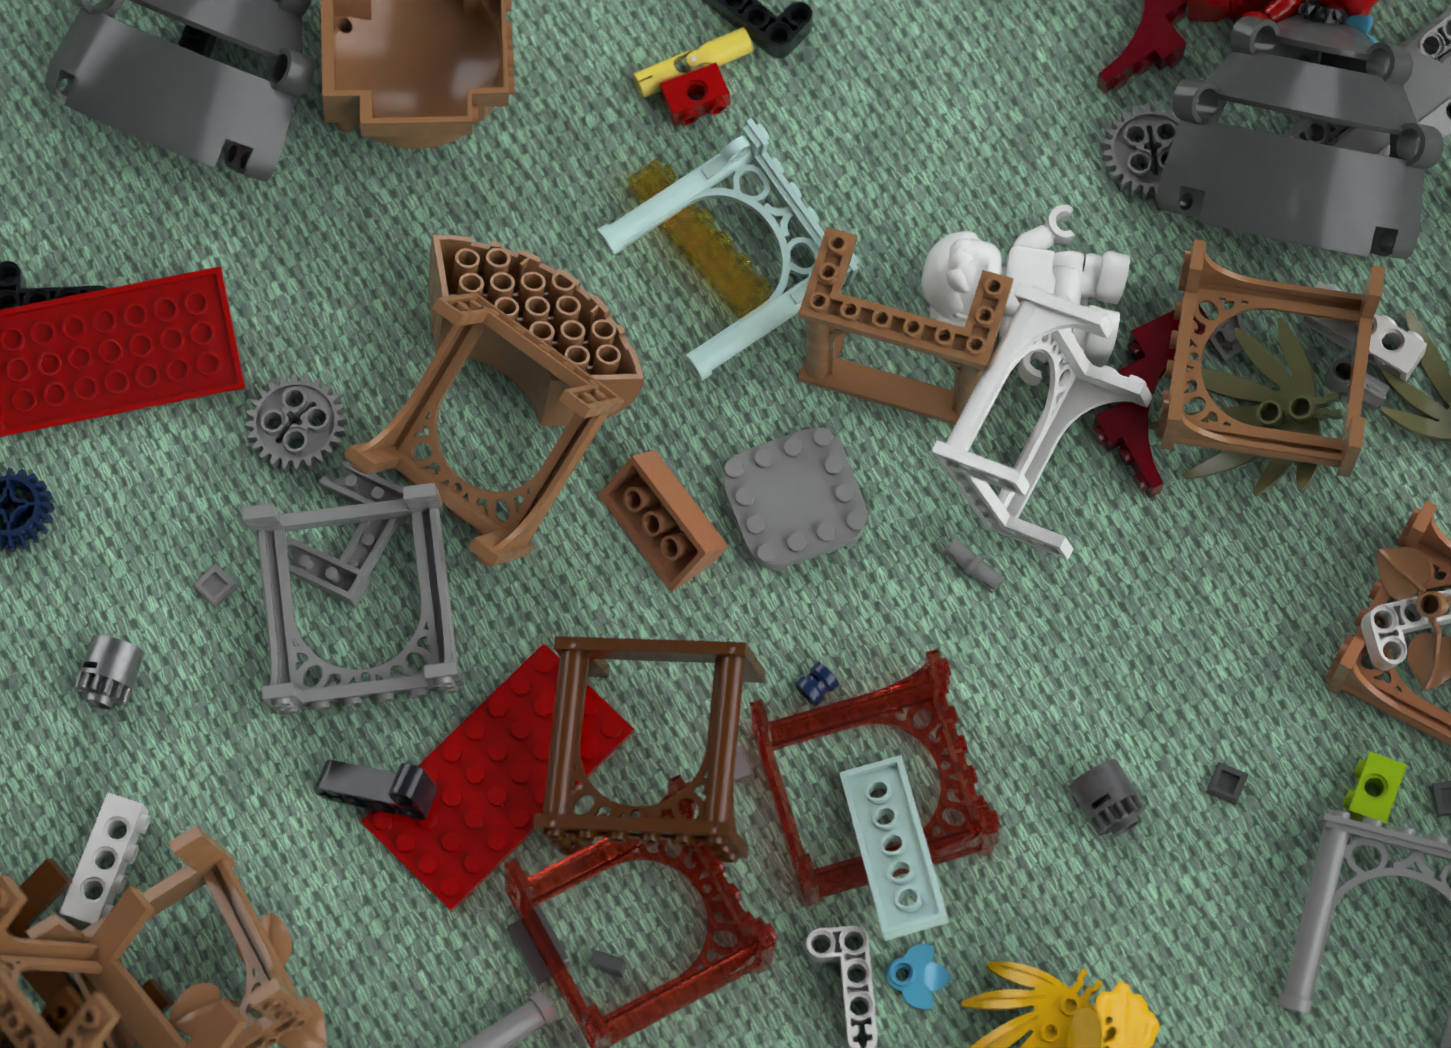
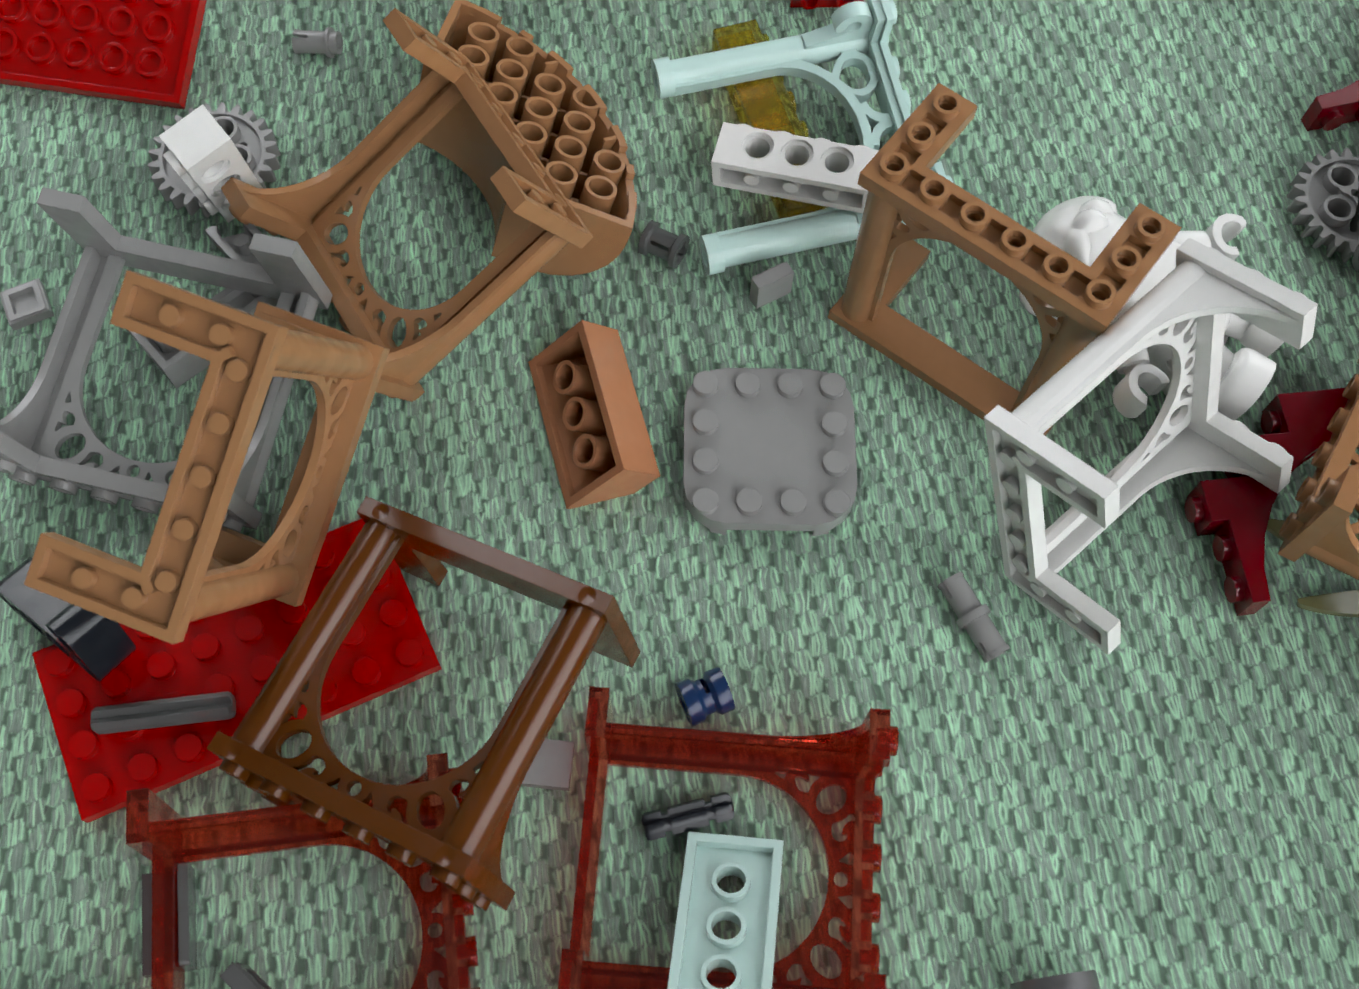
camera: 15 degrees right, 5 degrees down
(322, 295) = (318, 42): none -> light grey pin
(332, 442) = (206, 159): none -> white brick
(473, 824) = (163, 712): none -> dark grey axle
(496, 569) = (192, 560): none -> medium nougat arch
(659, 369) = (663, 244): none -> dark grey bush
(750, 373) = (771, 284): none -> light grey tile
(751, 289) = (777, 176): none -> white brick
(835, 763) = (687, 816): none -> black axle

